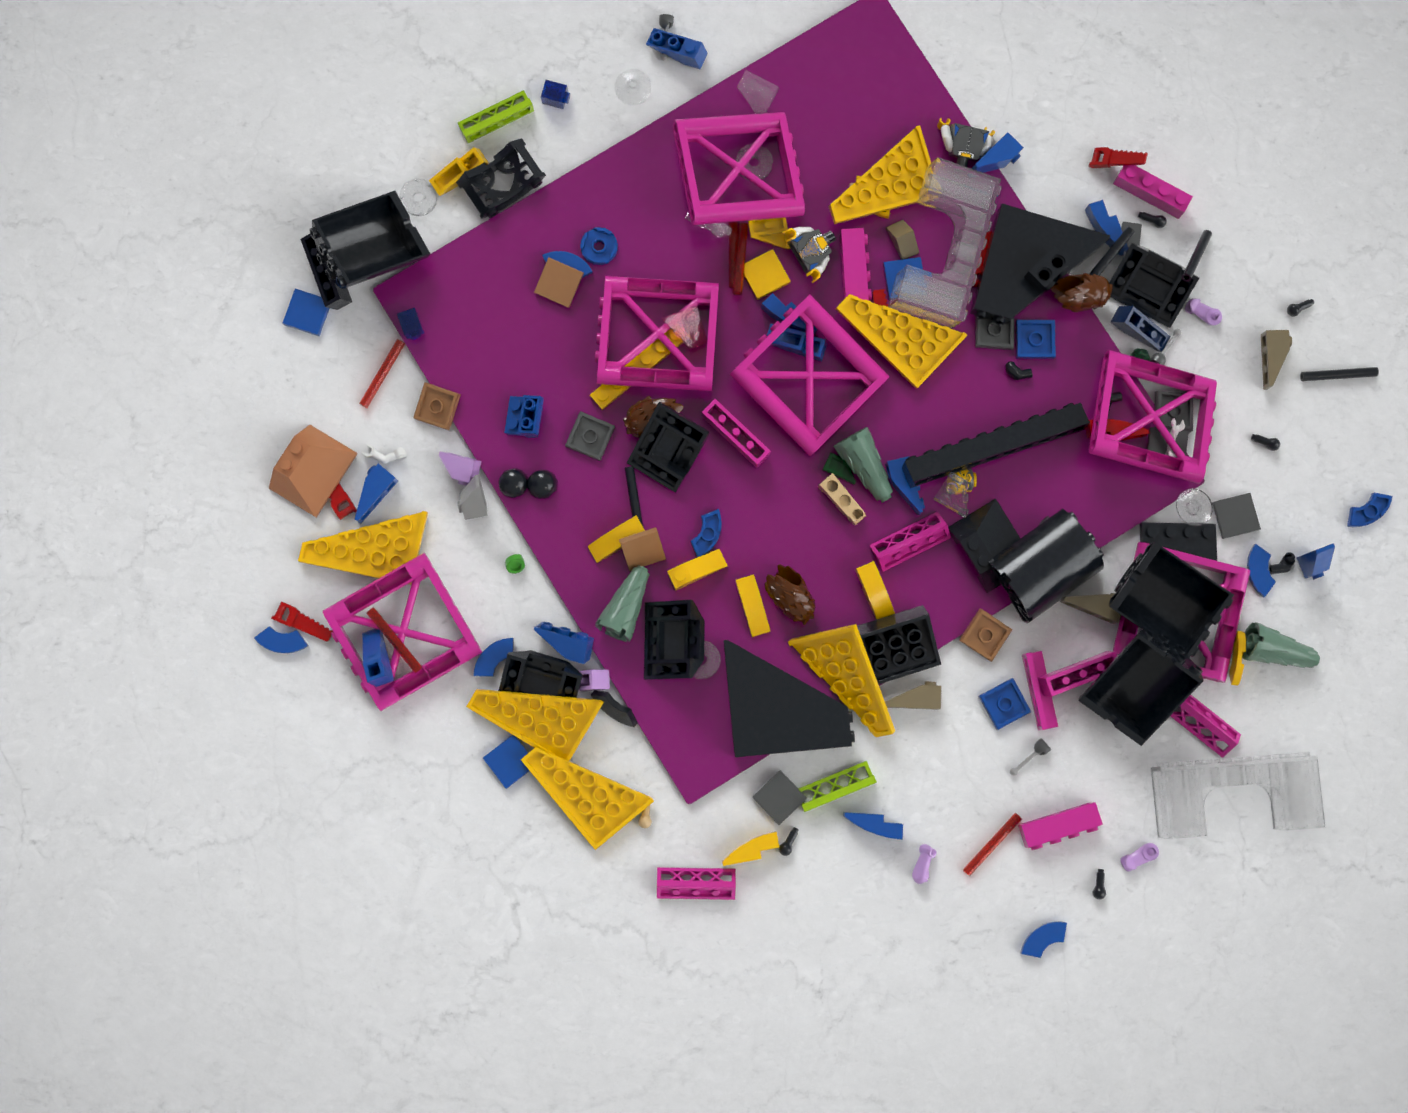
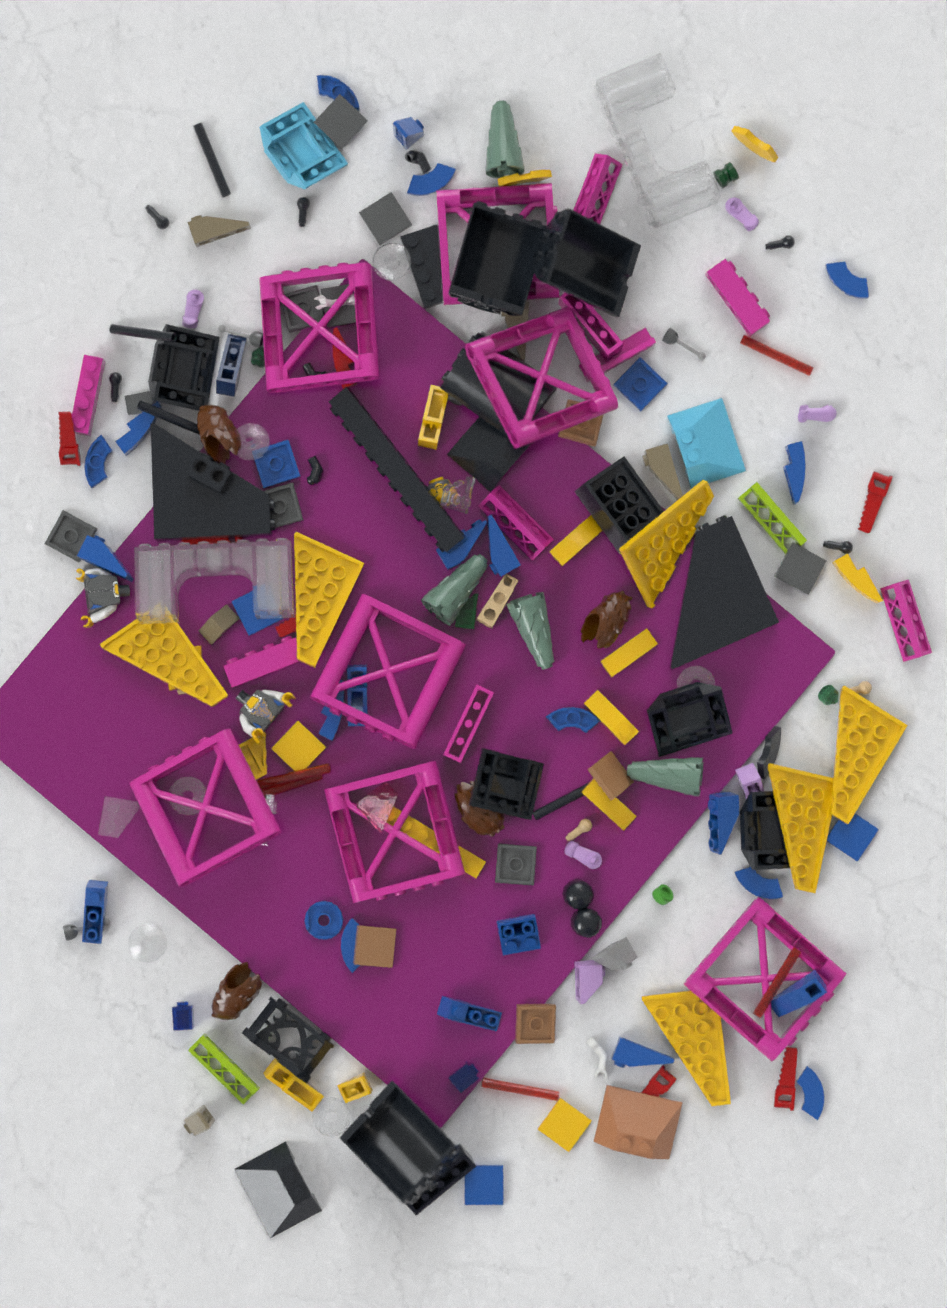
camera: 110 degrees left, 5 degrees up
(335, 403) = (564, 1124): none -> yellow tile
(369, 128) = (277, 1189): none -> slope
(436, 226) = (355, 1088): none -> yellow slope
(456, 78) = (199, 1121): none -> dark tan slope
(467, 347) = (469, 1013): none -> blue slope
(560, 145) = (235, 992): none -> reddish brown head
(575, 503) = (585, 856): none -> lavender piece
(603, 510) = (584, 826): none -> tan piece
(649, 783) = (828, 695): none -> clear green tile
(807, 524) = (534, 627): none -> sand green cone
(821, 891) = (873, 501): none -> red piece
(886, 516) = (500, 552): none -> blue slope
(928, 748) = (706, 442): none -> medium azure slope
(1029, 135) = (69, 535): none -> dark grey tile
(1033, 495) = (433, 418): none -> yellow slope
(1059, 327) = (259, 444): none -> clear dish
(1088, 180) = (96, 460): none -> blue tile
(1089, 639) = (557, 323): none -> dark pink piece
(1179, 850) = (726, 175): none -> dark green wheel
(1205, 891) = (757, 146): none -> yellow tile
(1329, 458) = (300, 148): none -> medium azure slope
(1342, 503) = (340, 121): none -> dark grey tile

